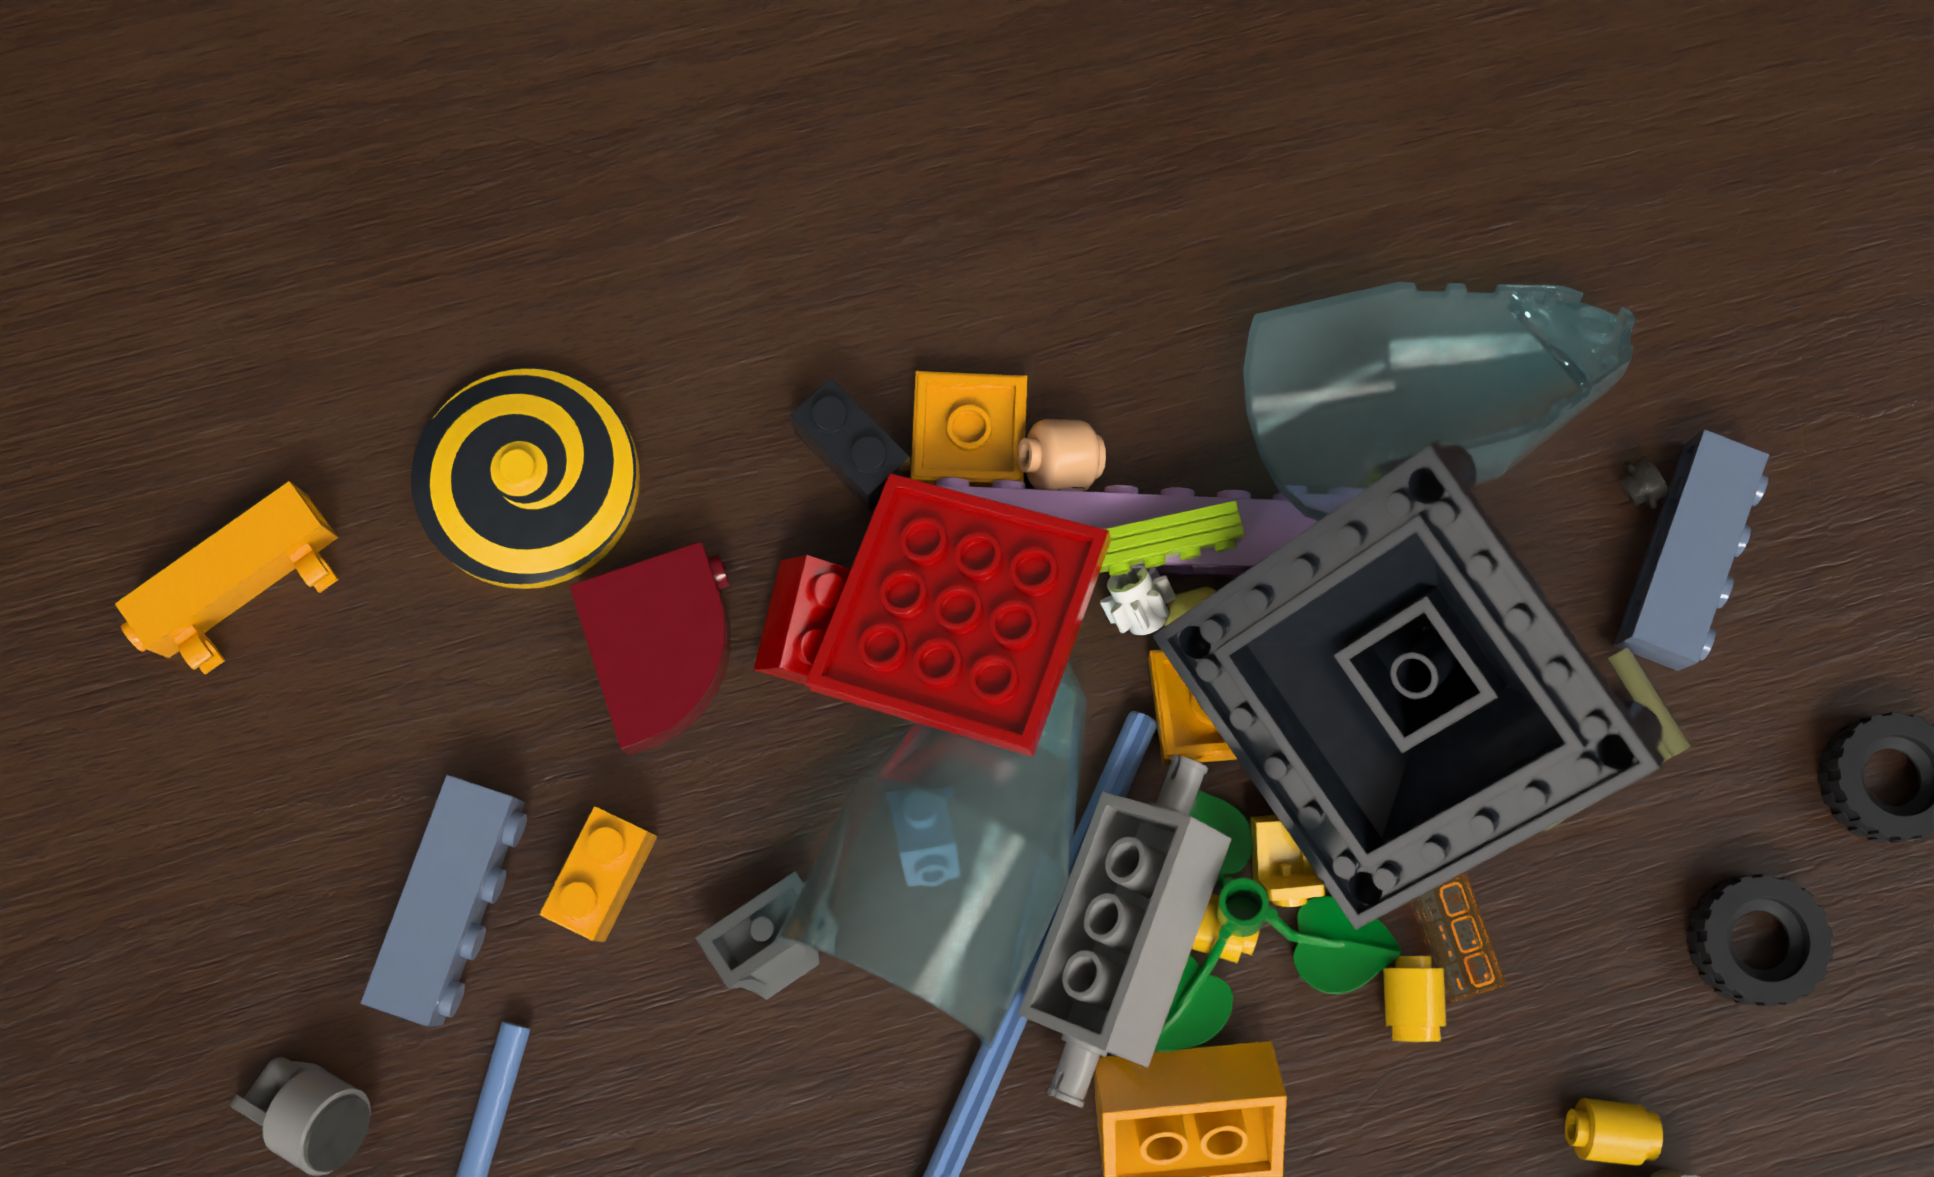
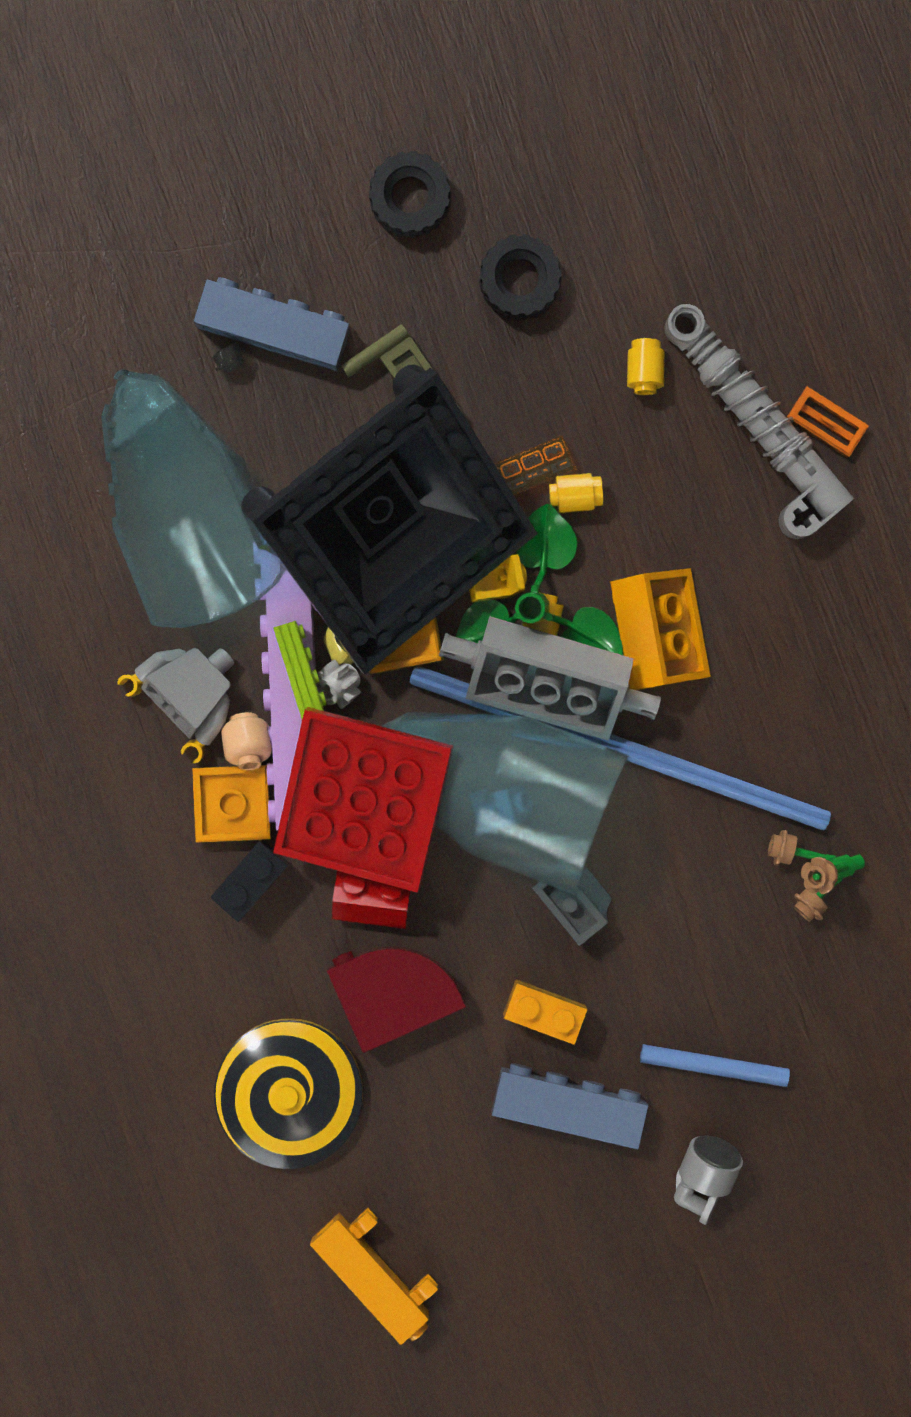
camera: 90 degrees left, 10 degrees up
(1143, 377) = (187, 691): none -> light grey torso

